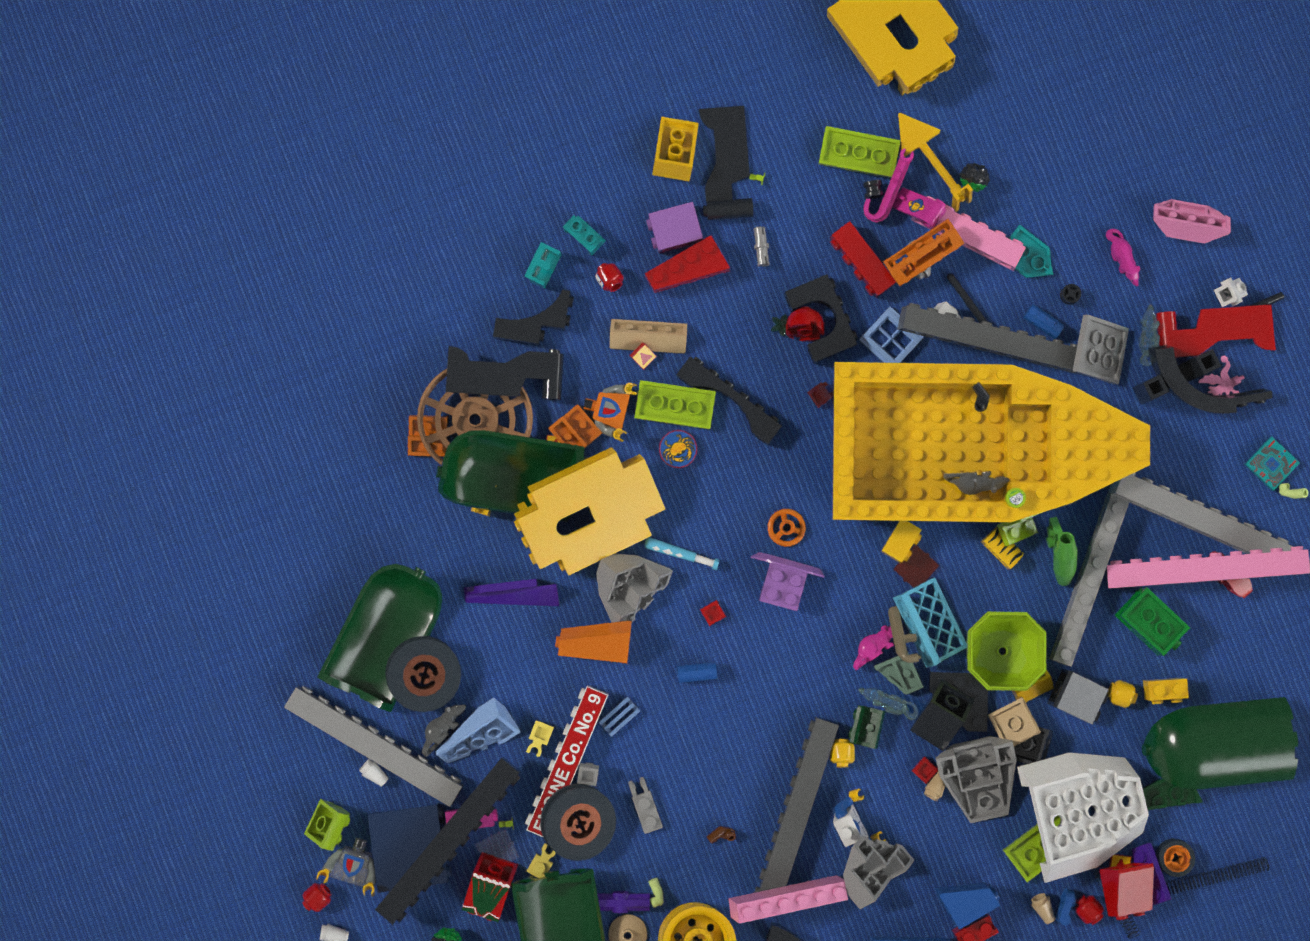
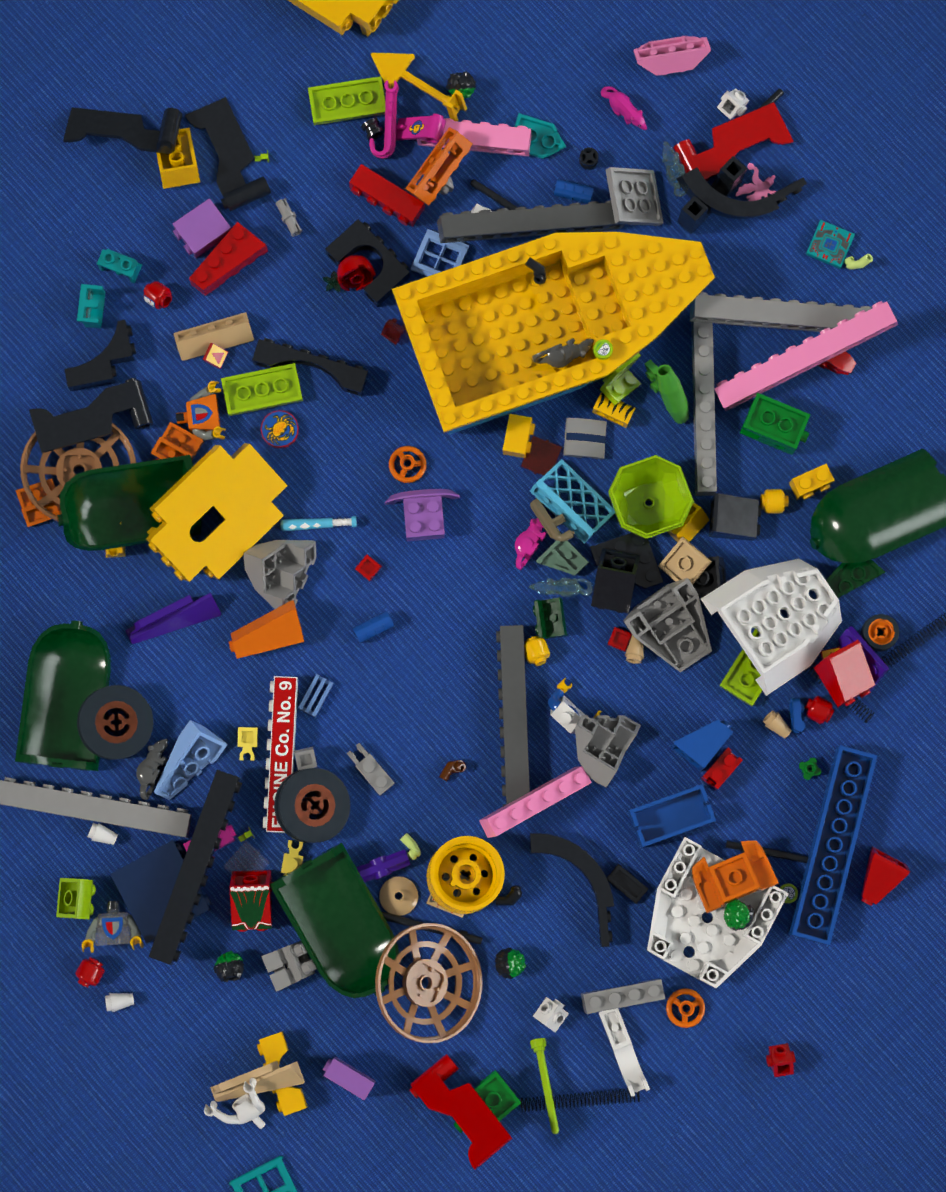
camera: 30 degrees left, 5 degrees down
(638, 101) = (125, 127): none -> black door
(964, 565) = (585, 438): none -> light grey slope

